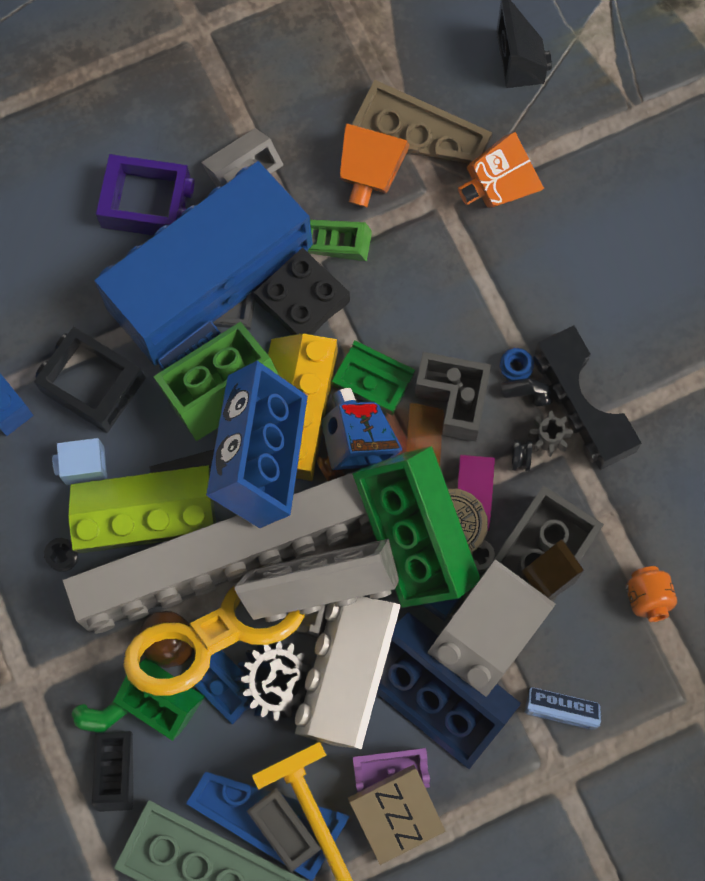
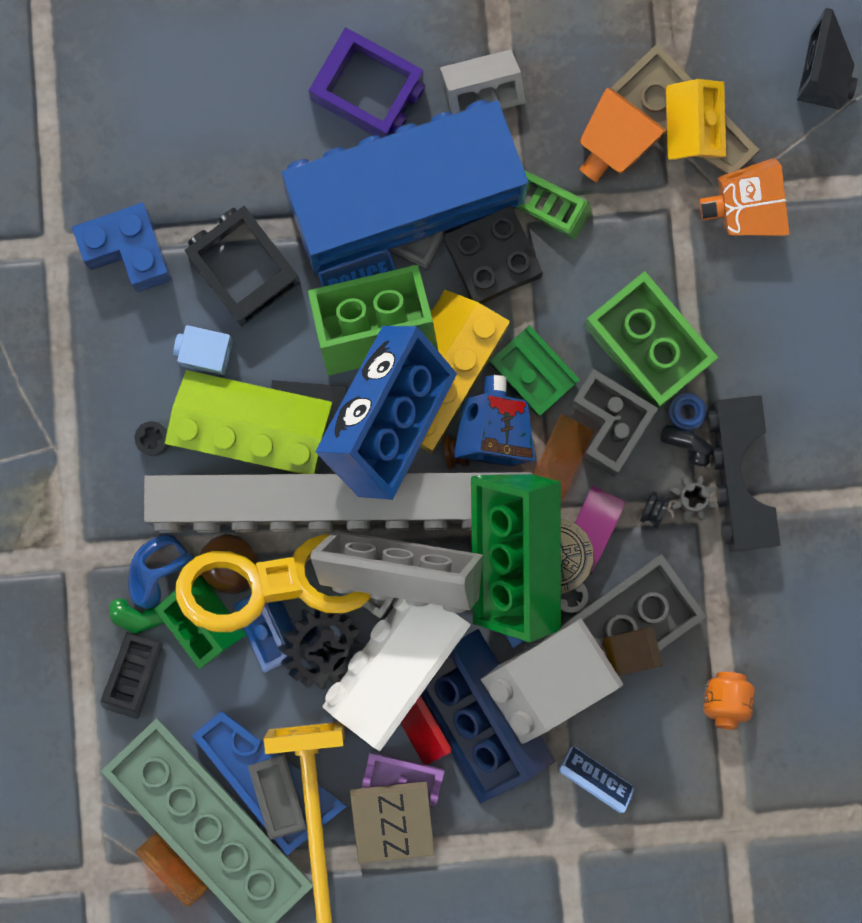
camera: 15 degrees right, 10 degrees up
(94, 679) = (144, 581): none -> blue piece
(395, 722) = (425, 733): none -> red slope
(429, 125) = (696, 119): none -> yellow panel
(461, 314) = (650, 340): none -> bright green brick

